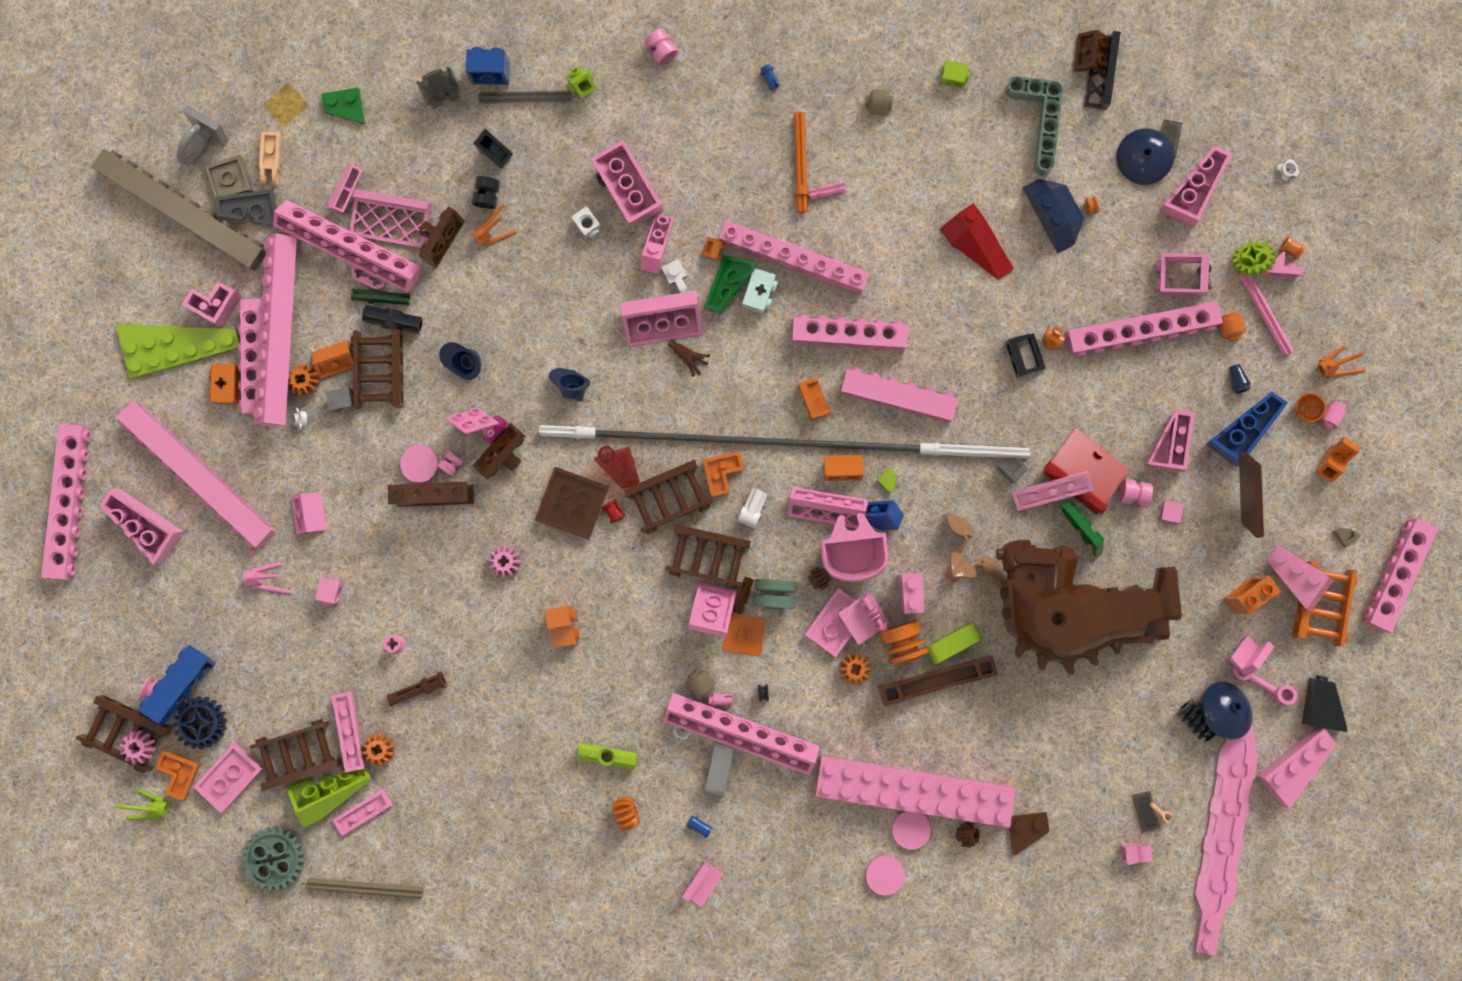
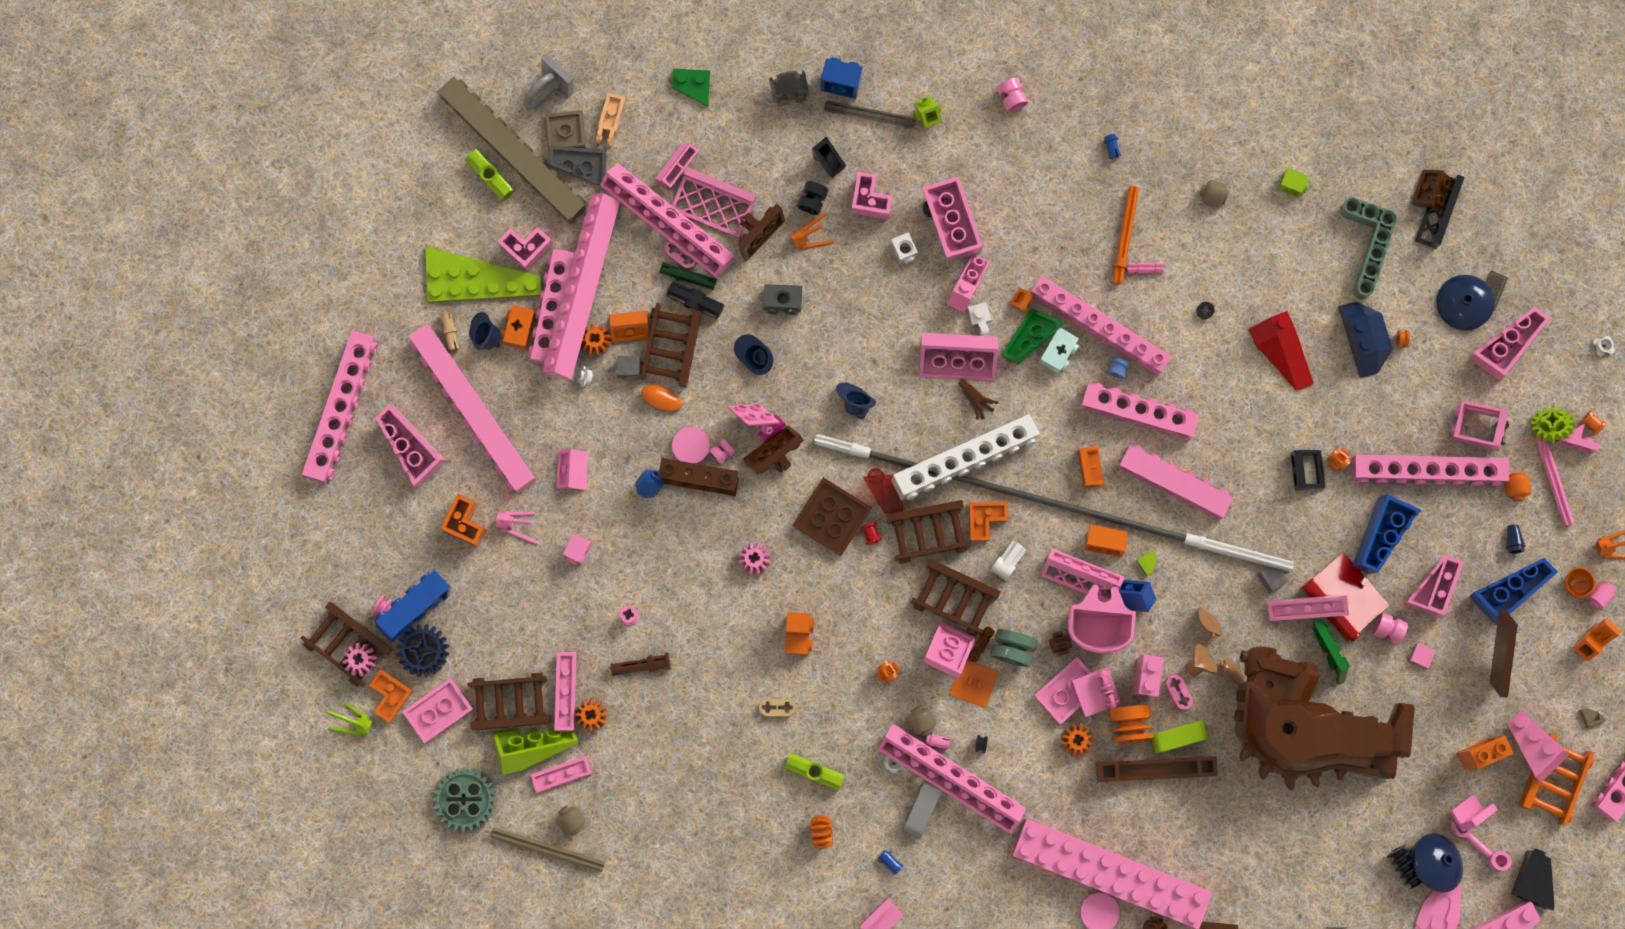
camera: 10 degrees right, 5 degrees down
(155, 233) = (482, 167): none -> lime piece
(157, 403) = (449, 331): none -> tan pin
(191, 397) = (484, 332): none -> dark blue piece
(206, 588) = (458, 522): none -> orange brick
(285, 104) = (635, 71): clear yellow piece -> none
(379, 423) = (661, 398): none -> orange arm
(380, 856) = (570, 820): none -> dark tan head
(384, 513) = (649, 484): none -> blue head
(468, 294) = (791, 292): none -> dark grey brick
(539, 184) = (866, 201): none -> bright pink brick
(556, 696) = (777, 712): none -> tan beam
(657, 642) = (887, 671): none -> orange gear
(739, 373) = (1022, 426): none -> white brick
(820, 295) = (1118, 368): none -> medium blue wheel
(898, 223) = (1209, 314): none -> black bush
(947, 596) = (1182, 689): none -> bright pink beam
(1111, 400) = (1382, 532): none -> blue wedge

